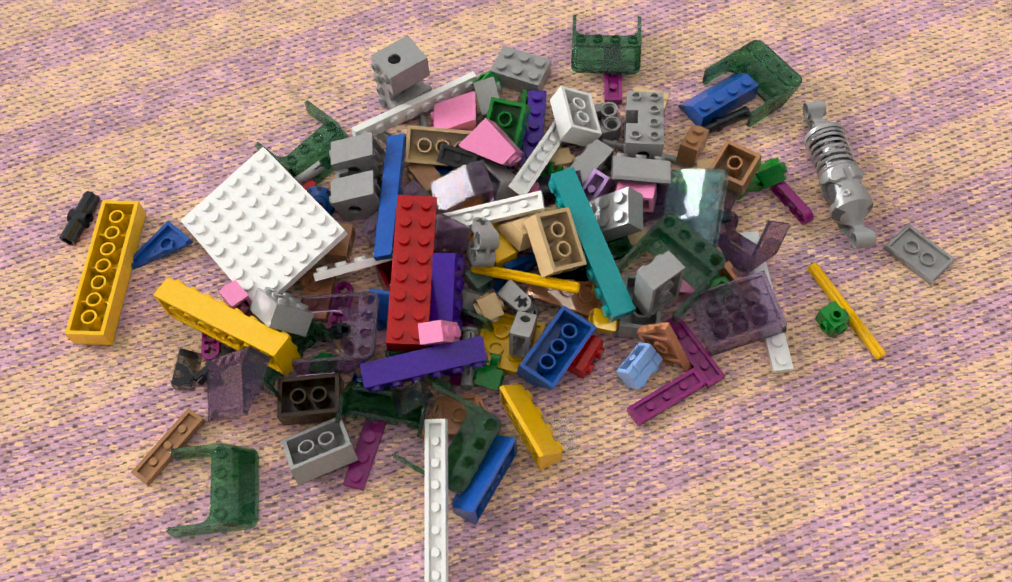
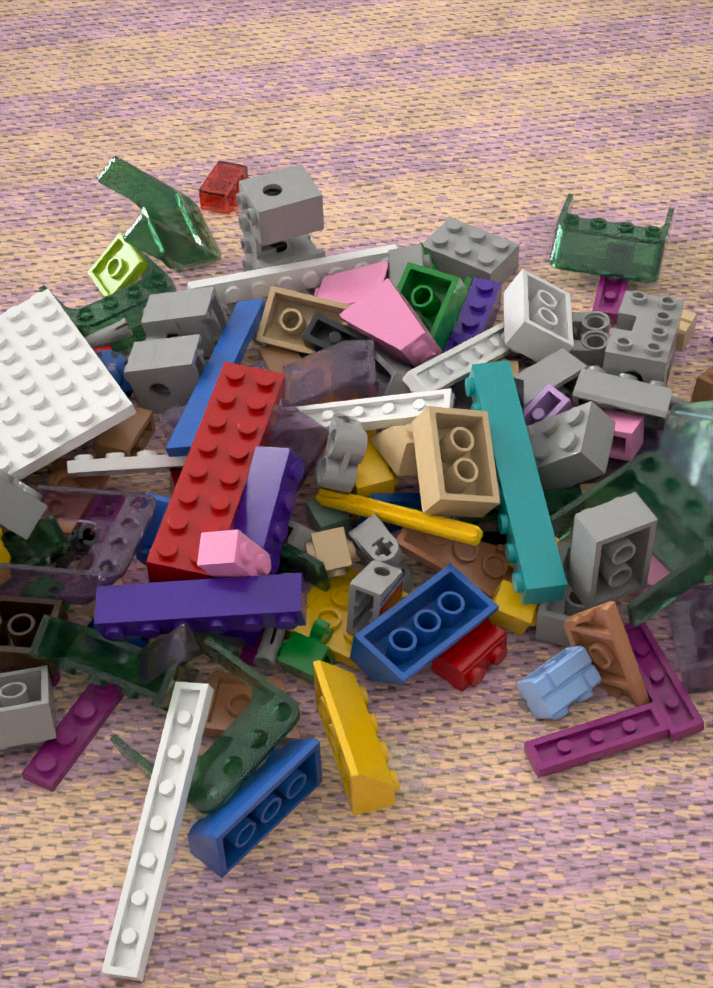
camera: 10 degrees right, 15 degrees down
(300, 118) = (117, 267): none -> lime tile
(330, 81) = (169, 220): none -> clear green windscreen
(351, 42) = (221, 186): none -> clear red brick

